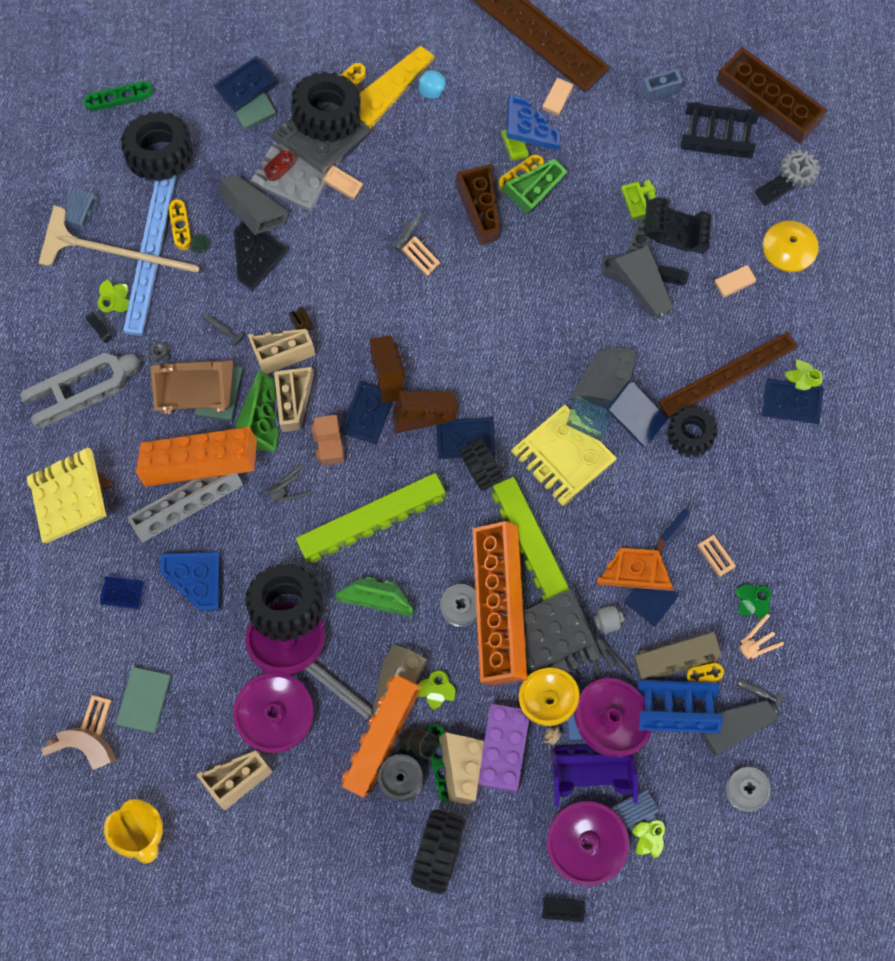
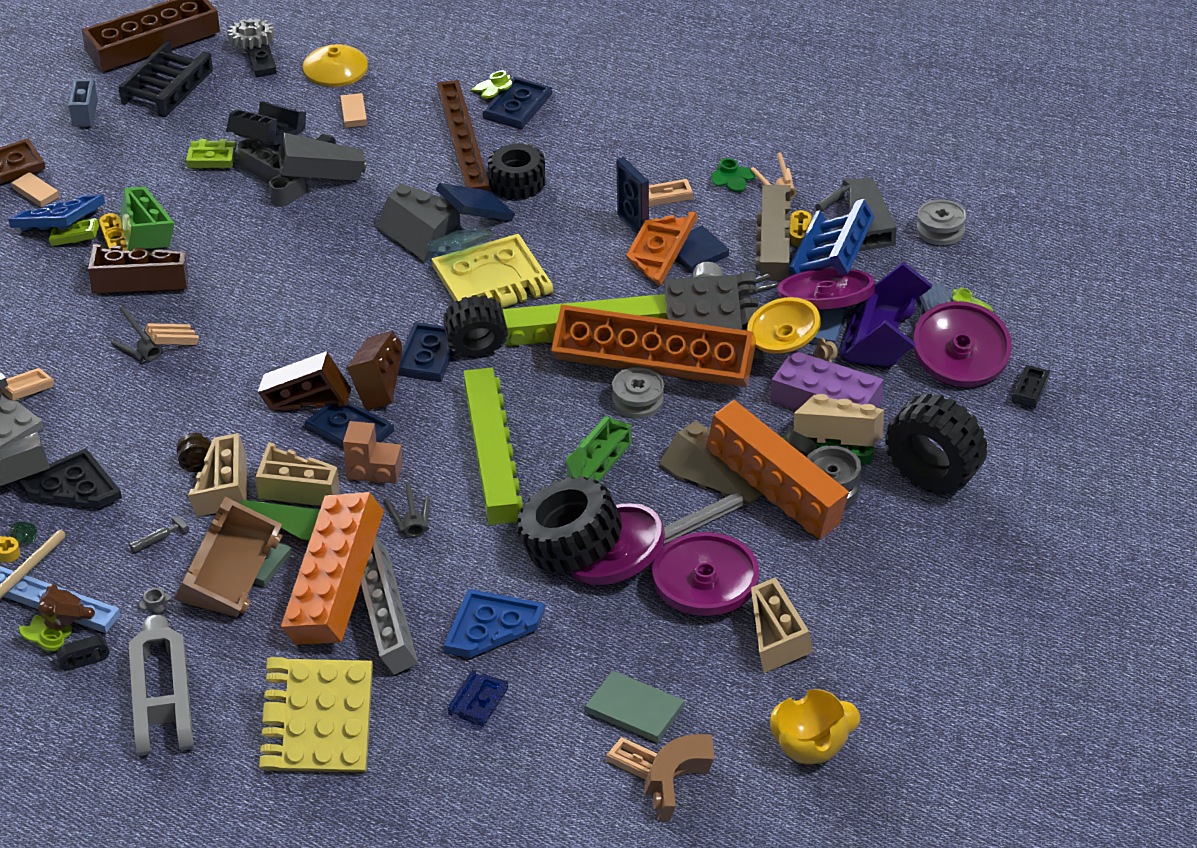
camera: 75 degrees left, 30 degrees down
(121, 297) = (62, 608): none -> reddish brown rock

